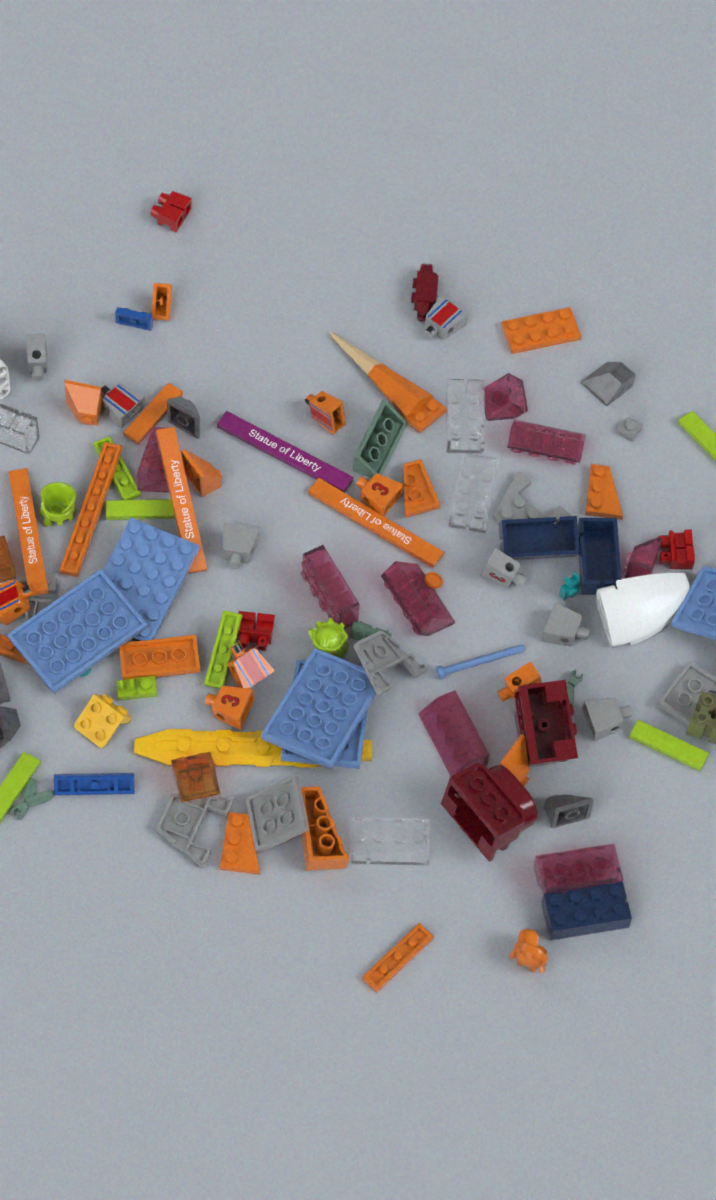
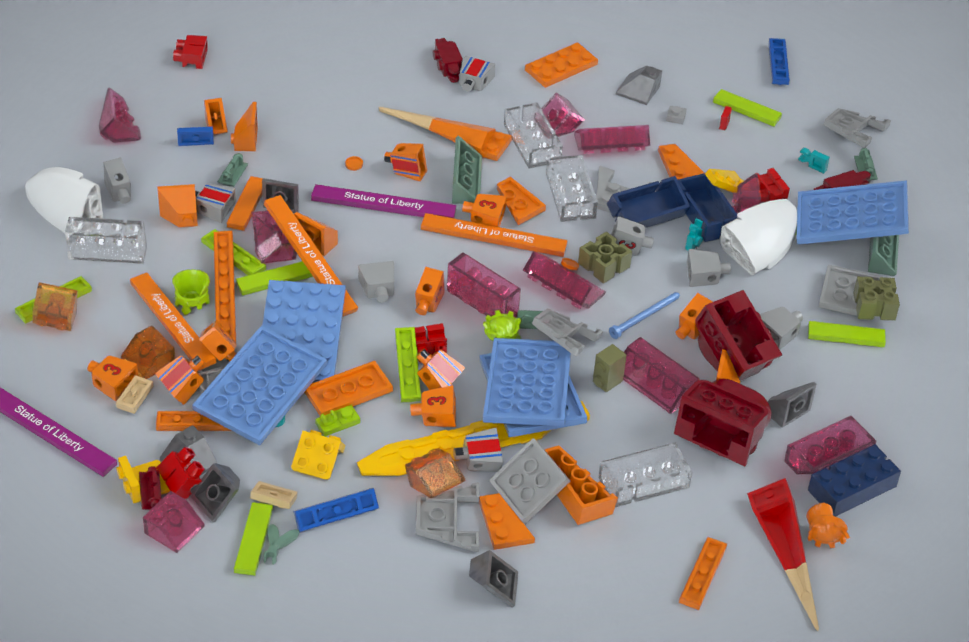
camera: 20 degrees left, 15 degrees down
(45, 750) = (273, 495): none -> tan plate
(57, 571) = (215, 336): none -> orange torso
(66, 277) = (116, 121): none -> clear pink wedge
(154, 371) = (233, 171): none -> sand green hinge
(184, 328) = (246, 130): none -> orange slope
(204, 902) = (495, 576): none -> flat silver slope
(249, 766) = (481, 451): none -> torso
(277, 394) = (354, 163): none -> orange piece
(278, 574) = (429, 297): none -> orange torso
(409, 715) = (609, 368): none -> olive brick
(468, 585) = (605, 257): none -> olive brick
(493, 925) = (779, 520): none -> red plate
(633, 530) = (724, 179): none -> yellow wing
(677, 449) = (725, 118): none -> red tile

